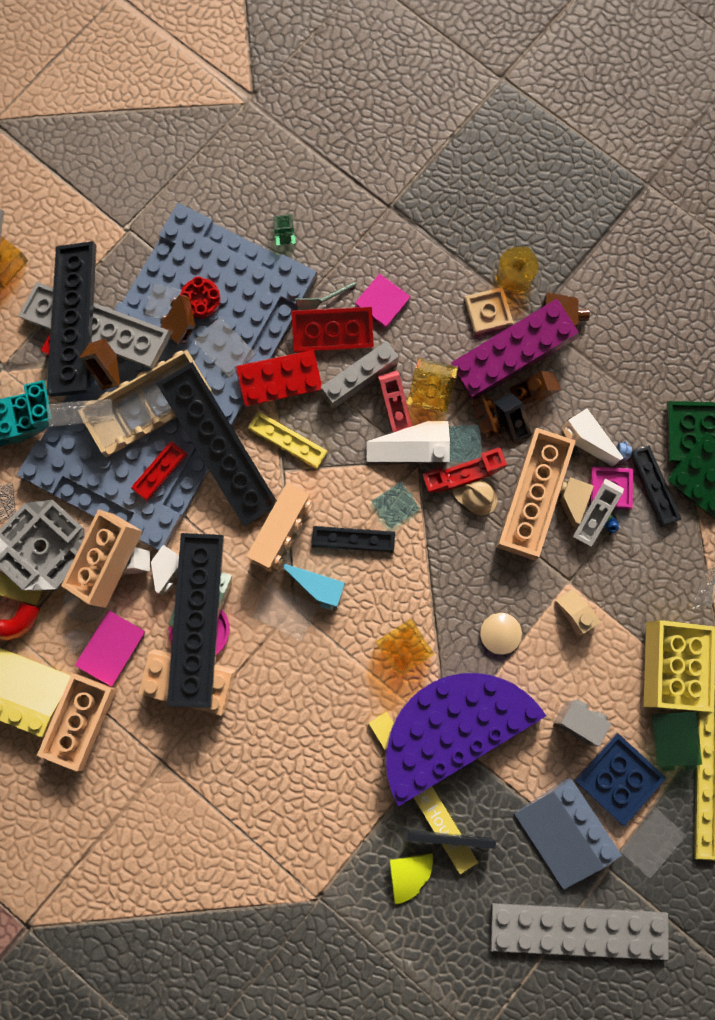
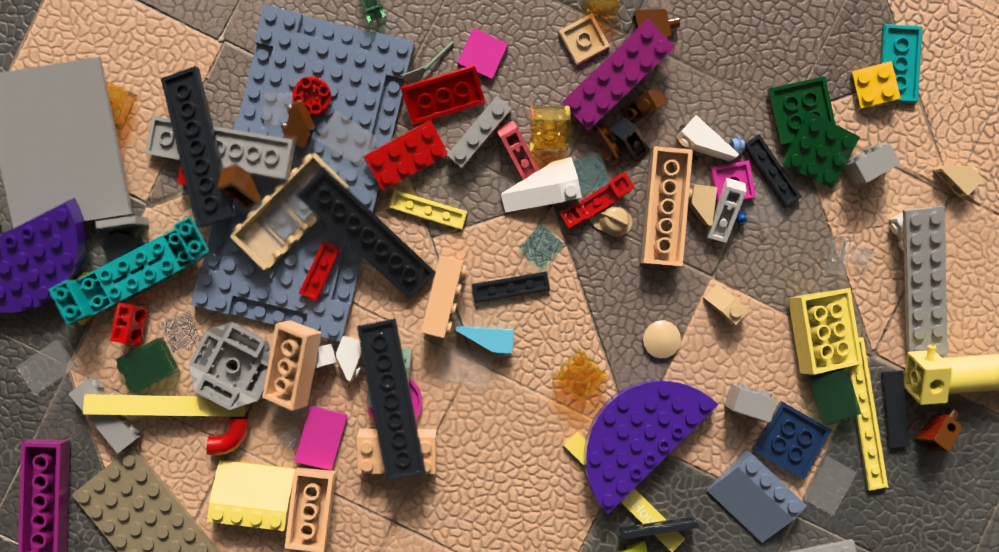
camera: 15 degrees left, 10 degrees up
(80, 412) = (233, 238): clear plate -> none

